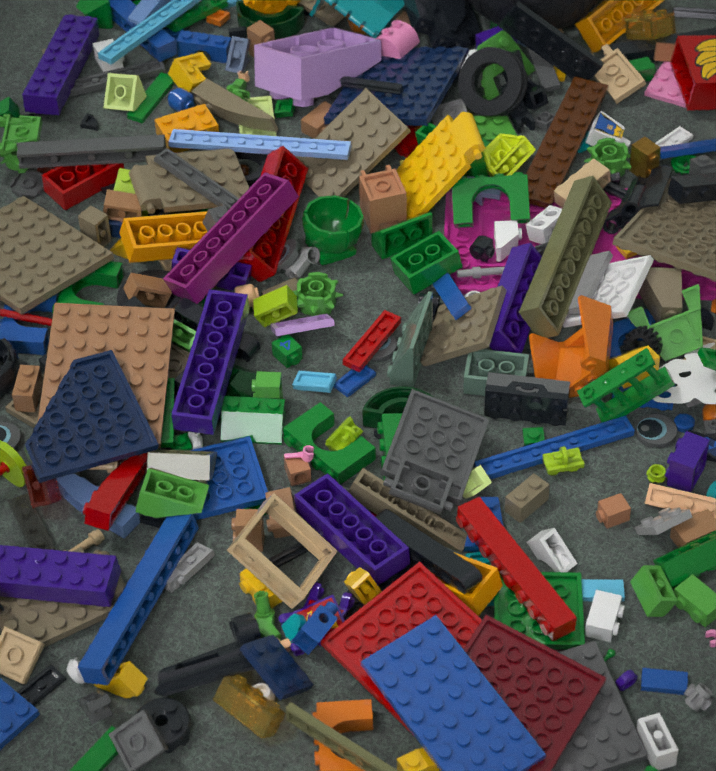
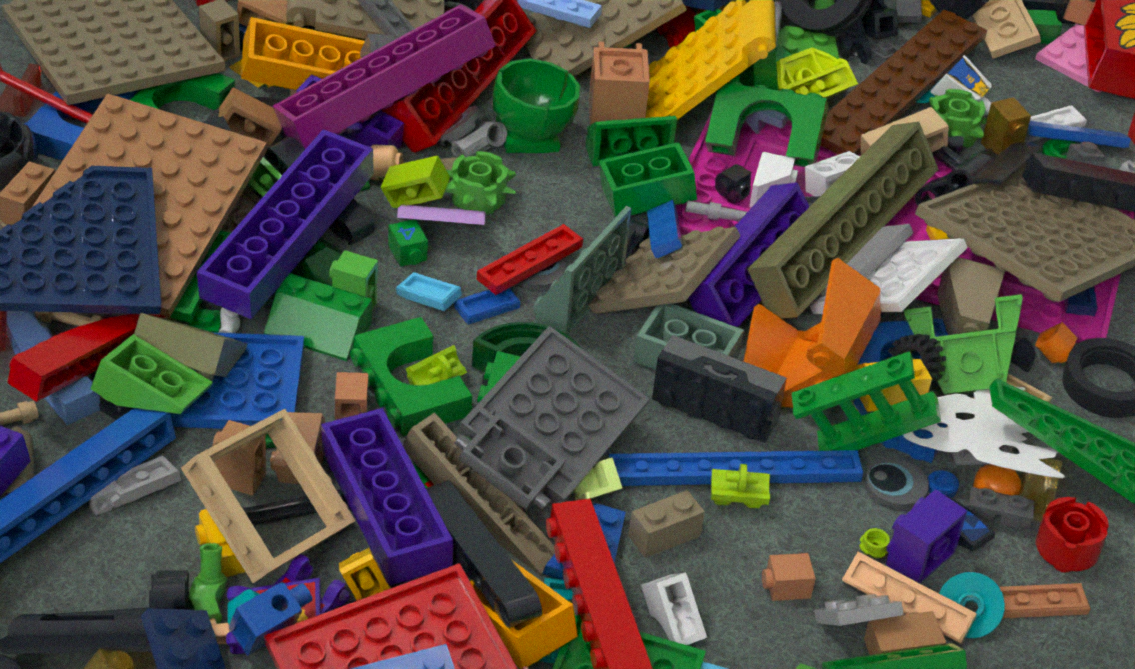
camera: 10 degrees right, 5 degrees down
(306, 455) = (367, 379): bright pink hand -> none
(532, 435) = (711, 441): green plate -> none

